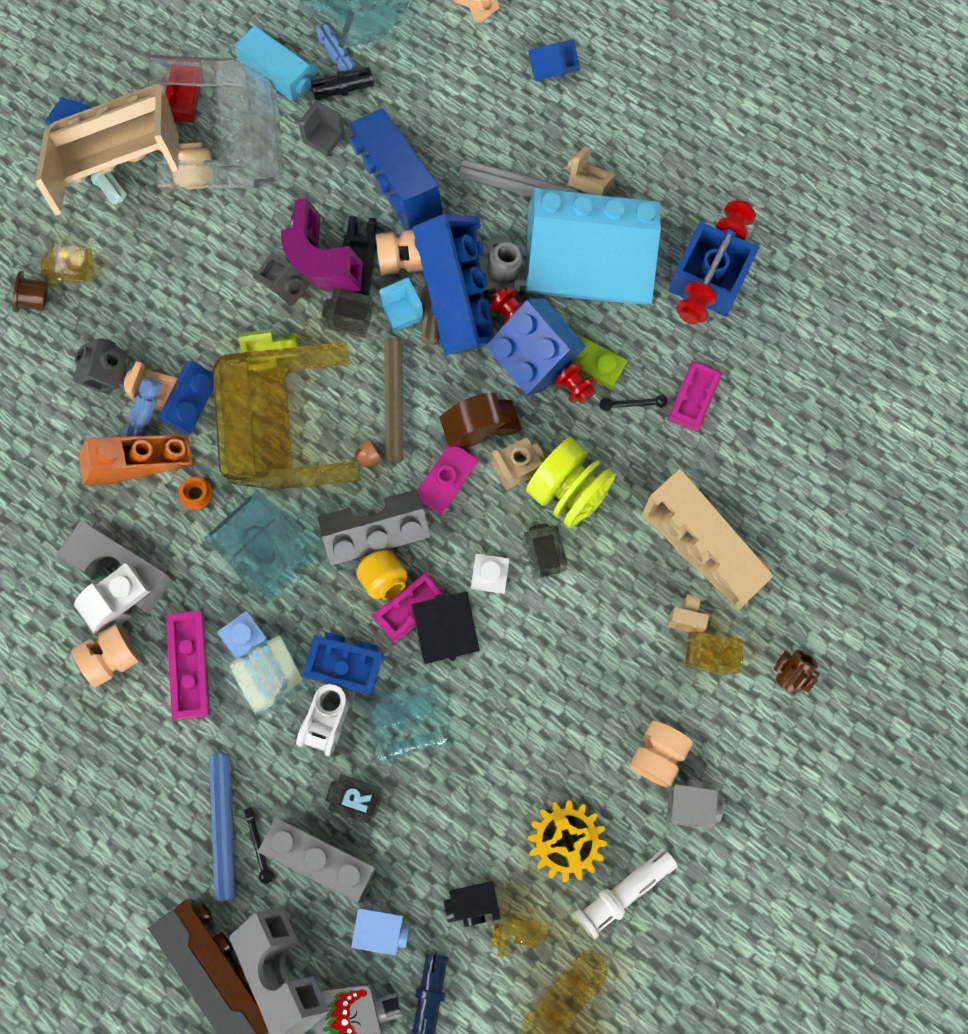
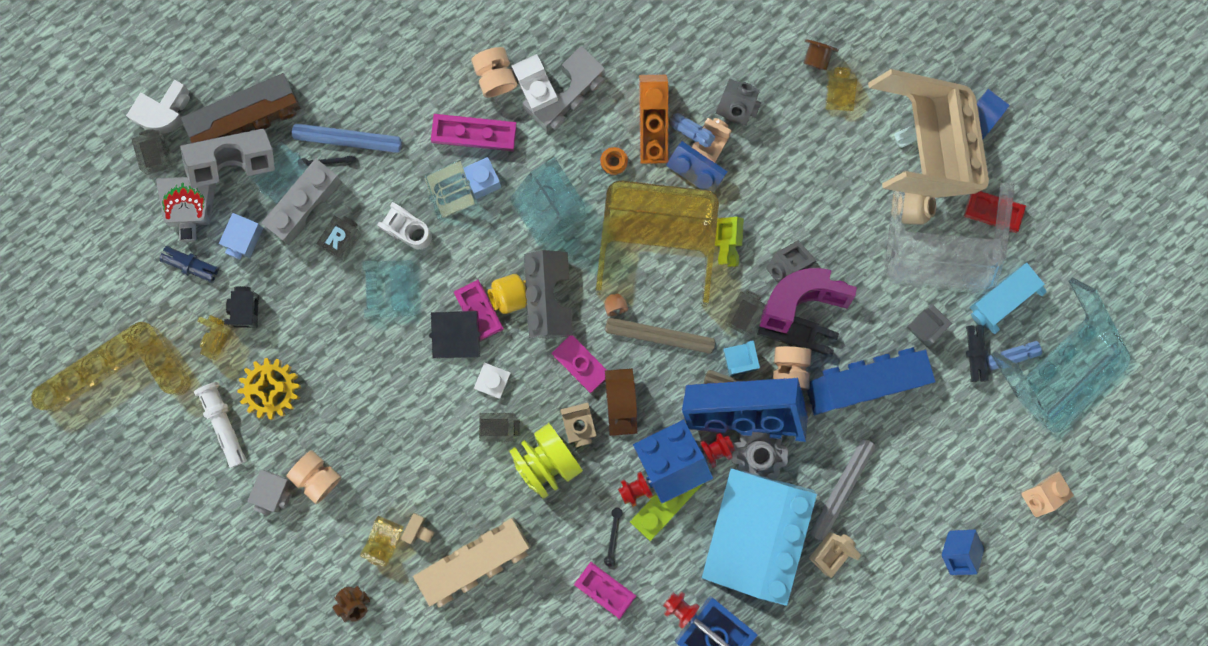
camera: 100 degrees right, 10 degrees up
(289, 891) = (287, 171): none -> clear light blue piece
(343, 664) = (444, 249): blue bracket -> none

